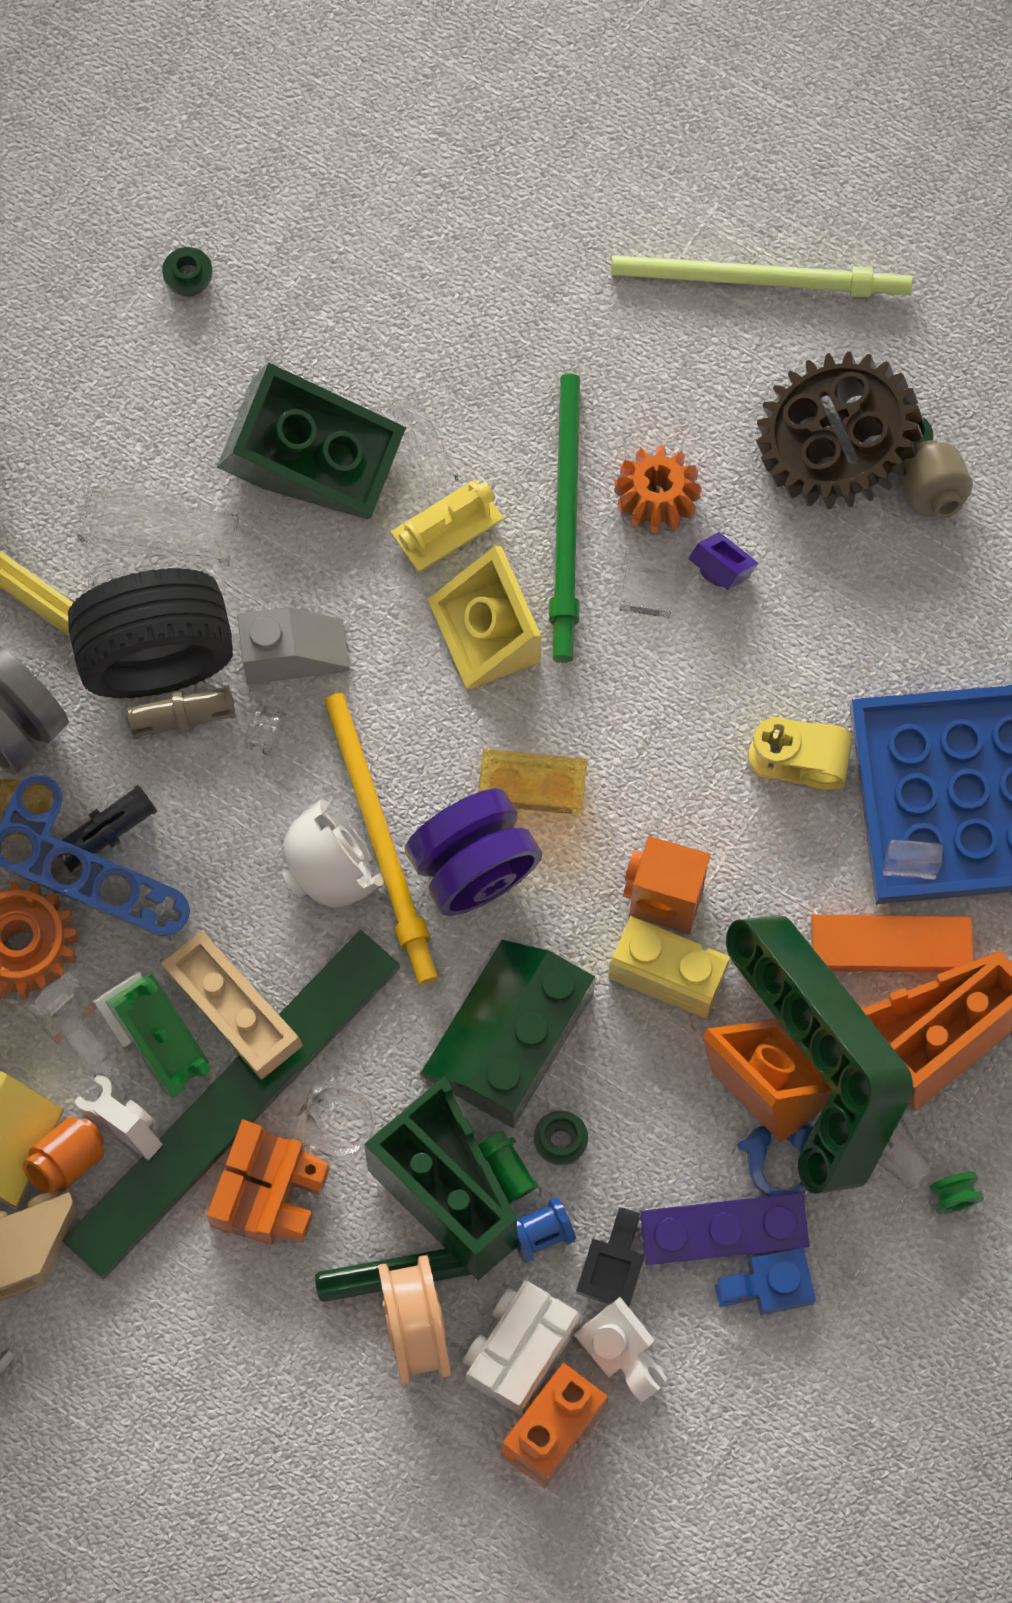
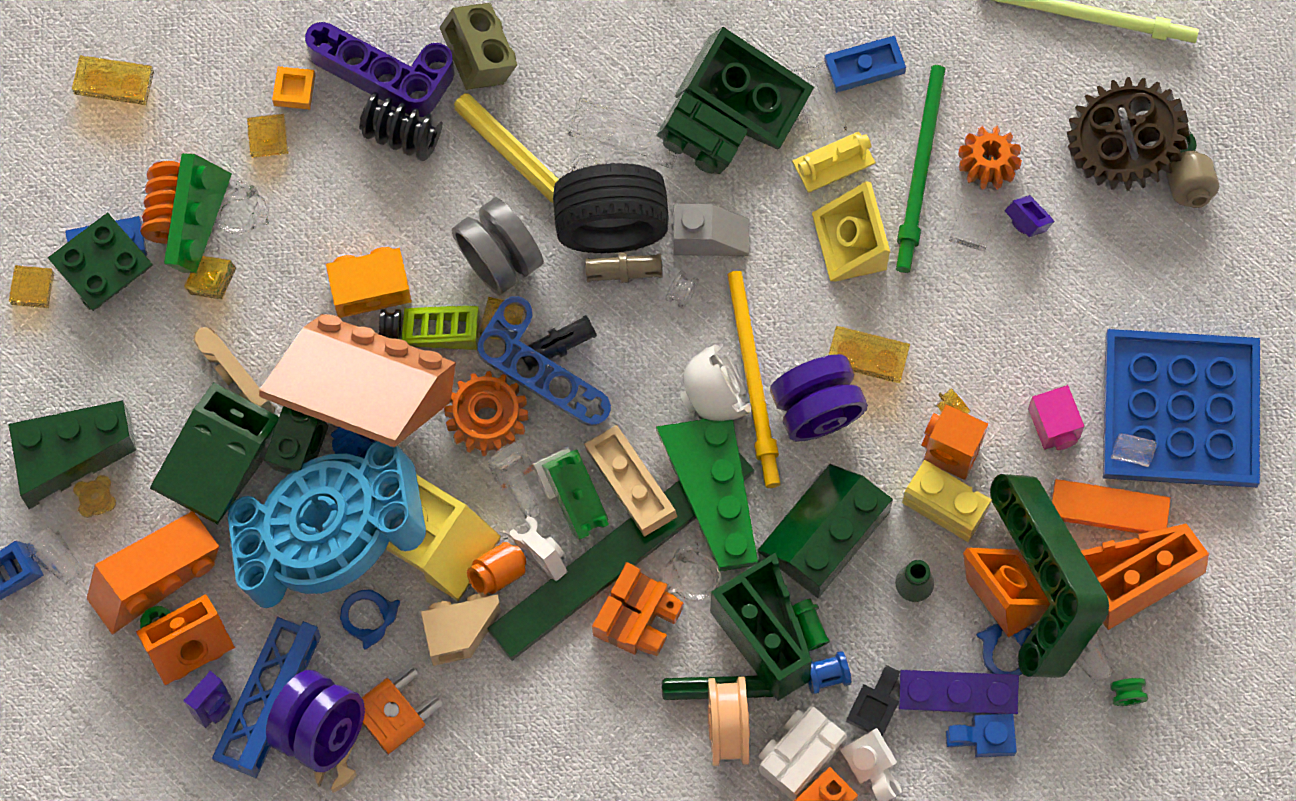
camera: 10 degrees right, 0 degrees up
(260, 513) = (701, 134): none -> dark green brick
(341, 980) = (711, 475): none -> green wing
(470, 386) = (865, 64): none -> blue plate
(565, 1122) = (855, 599): dark green plate -> none
(638, 1095) = (912, 588): none -> dark green cone
(657, 828) = (952, 399): none -> clear yellow plate
(801, 832) = (1056, 418): none -> dark pink brick
(805, 755) = (1068, 362): light yellow piece -> none

